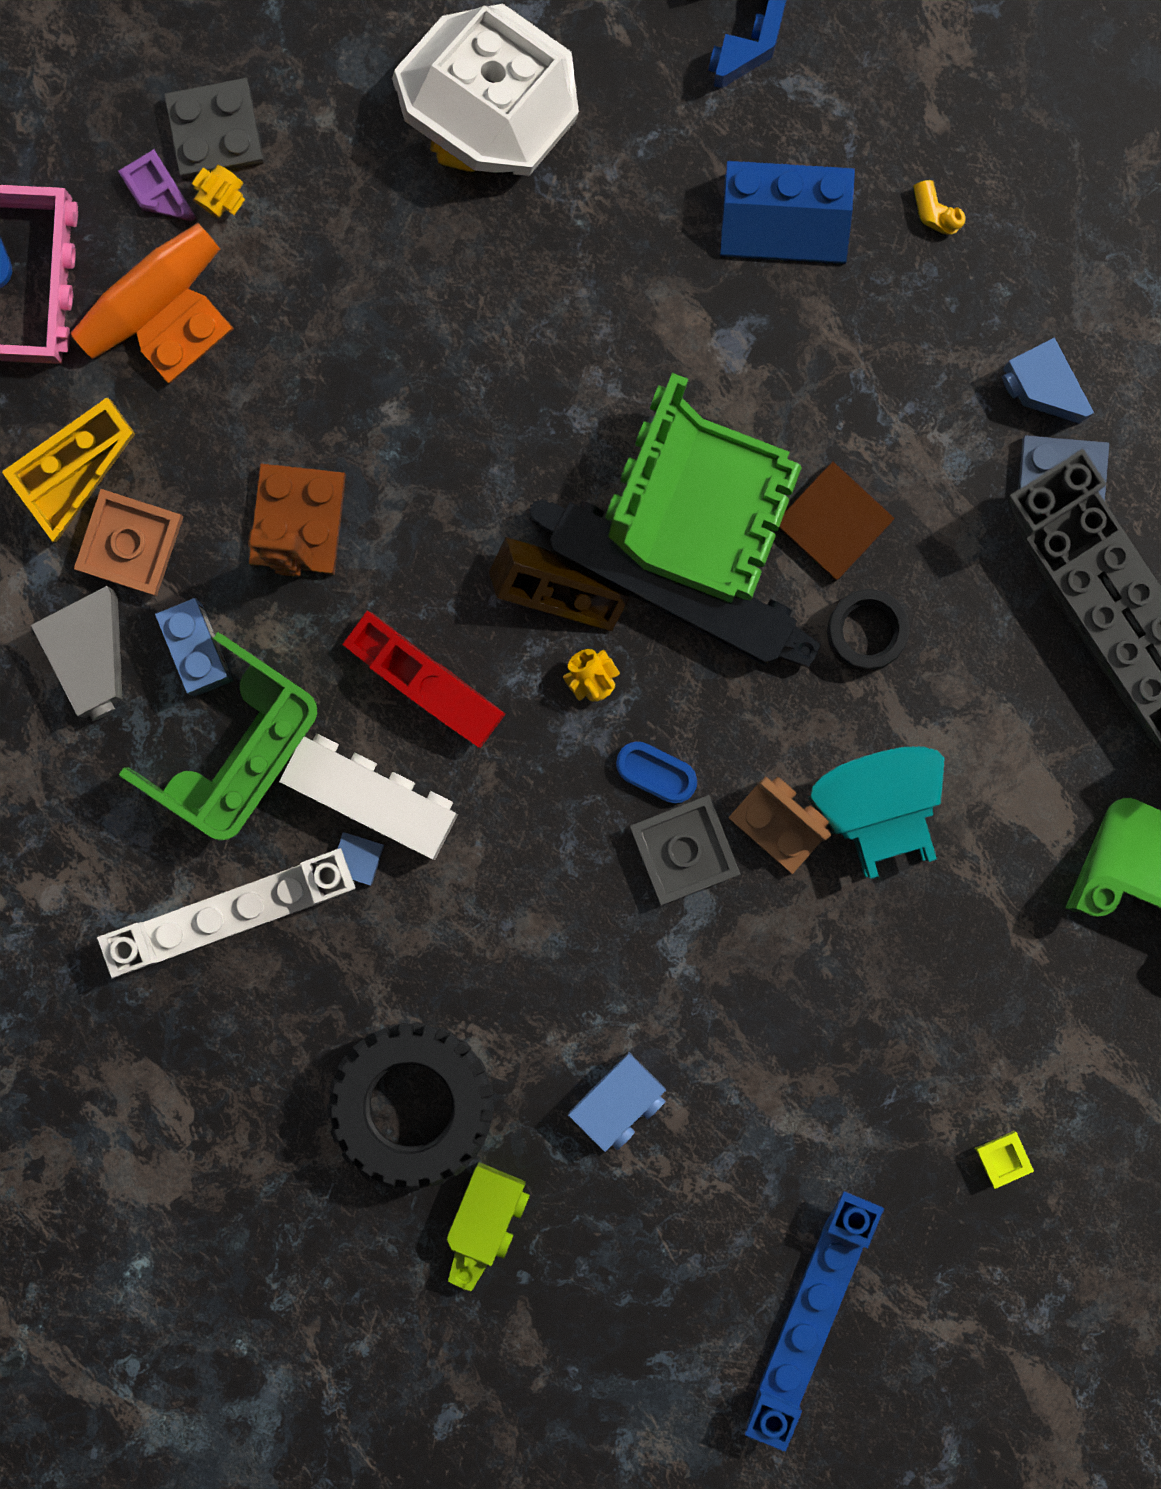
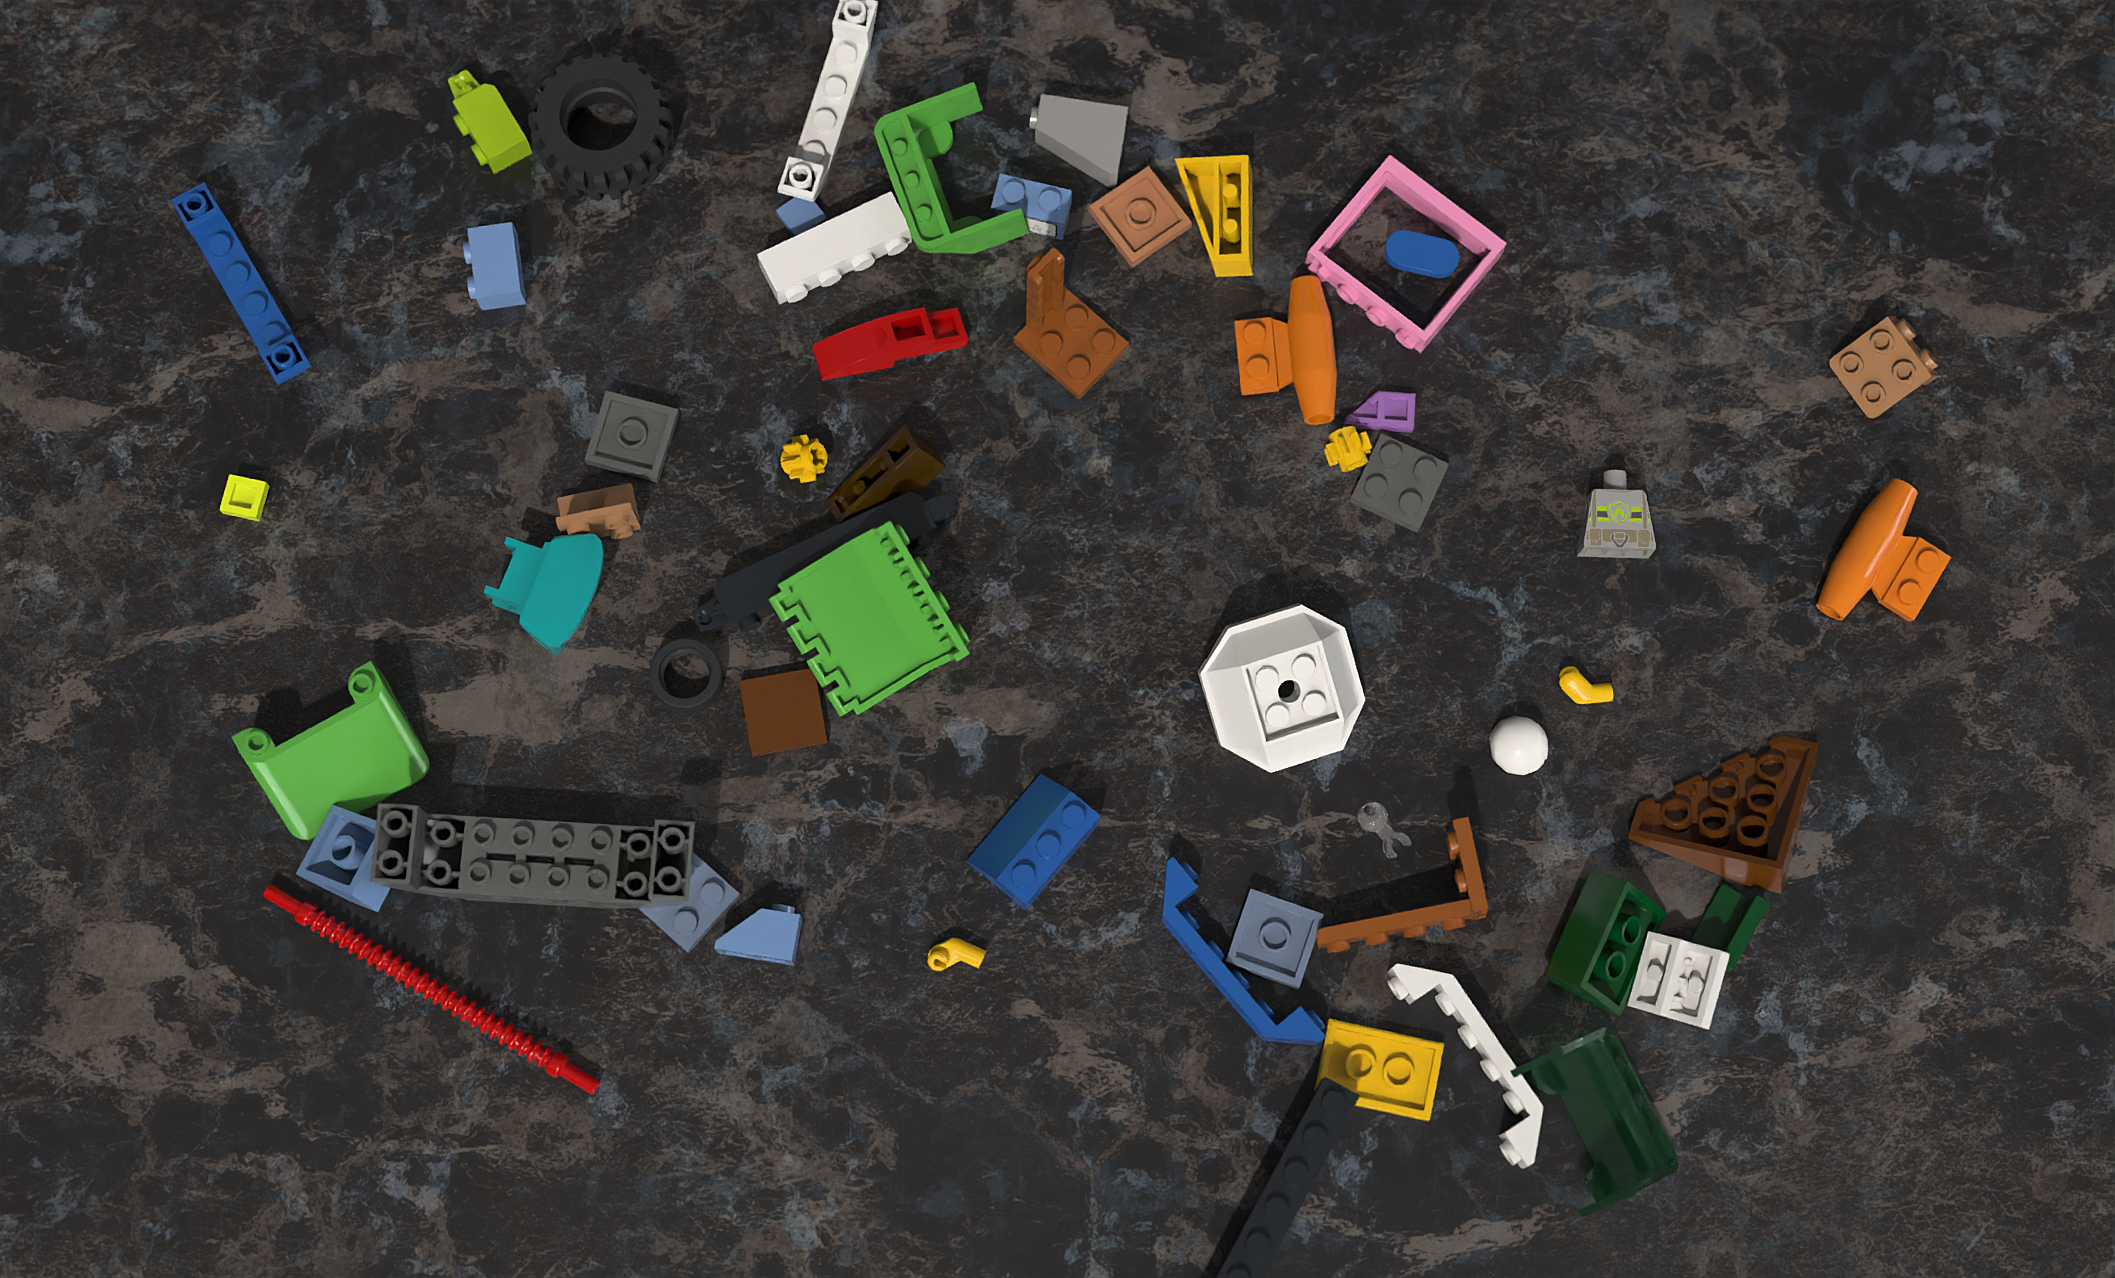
camera: 115 degrees right, 10 degrees down
(656, 772) = (702, 459): blue tile -> none

